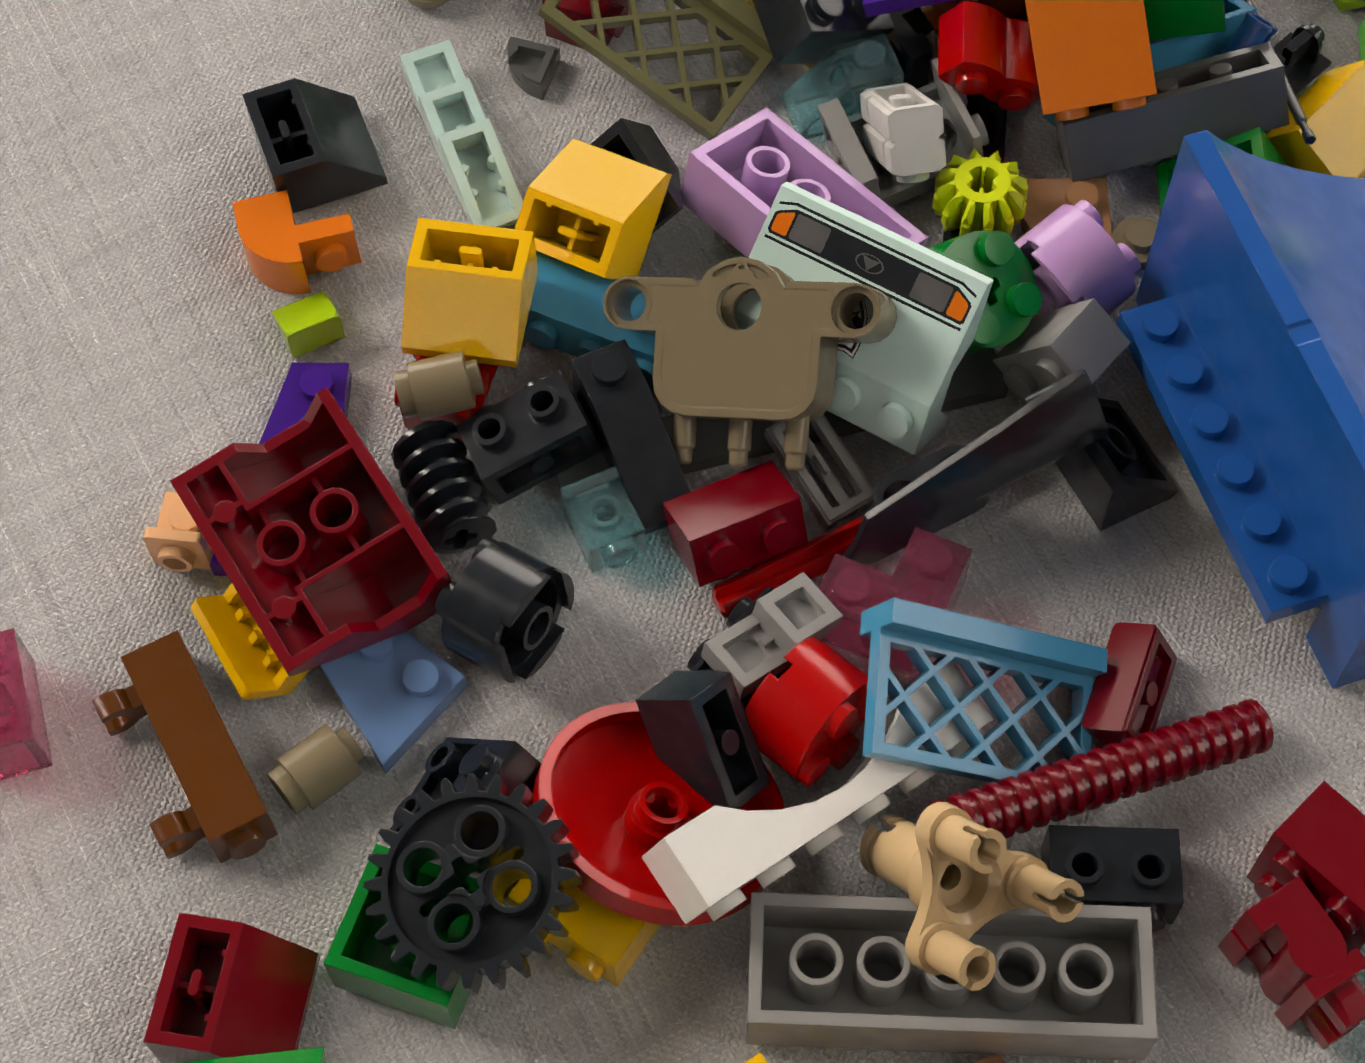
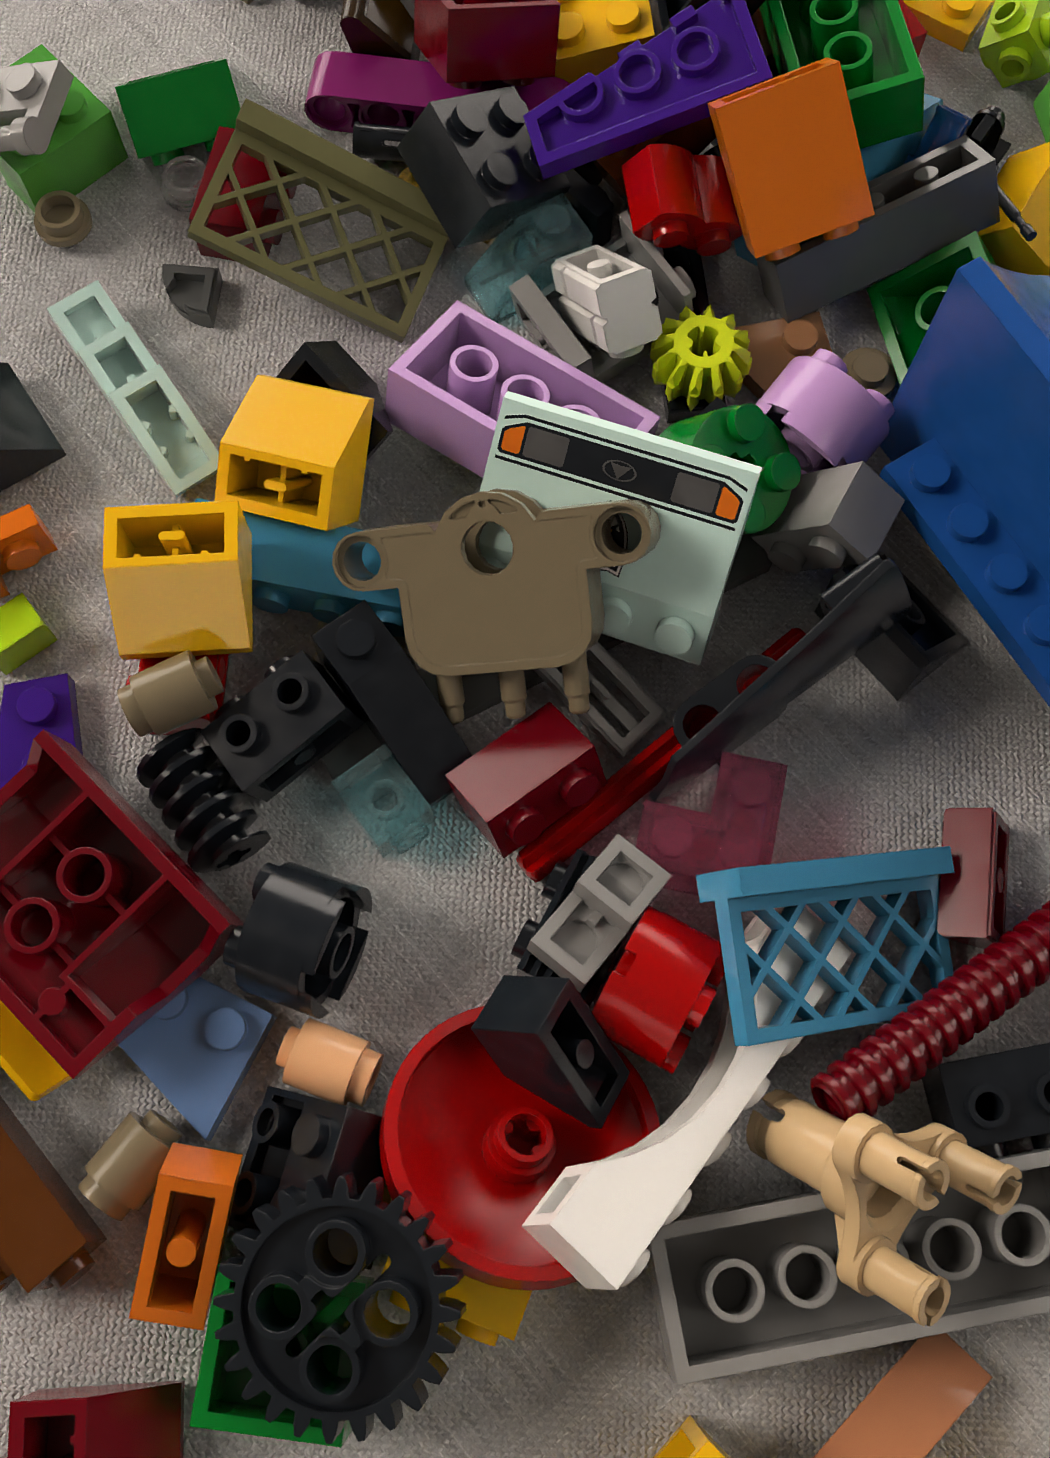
camera: 15 degrees left, 10 degrees up
(348, 822) = (185, 1236): none -> orange brick
(503, 715) = (329, 1063): none -> light nougat brick

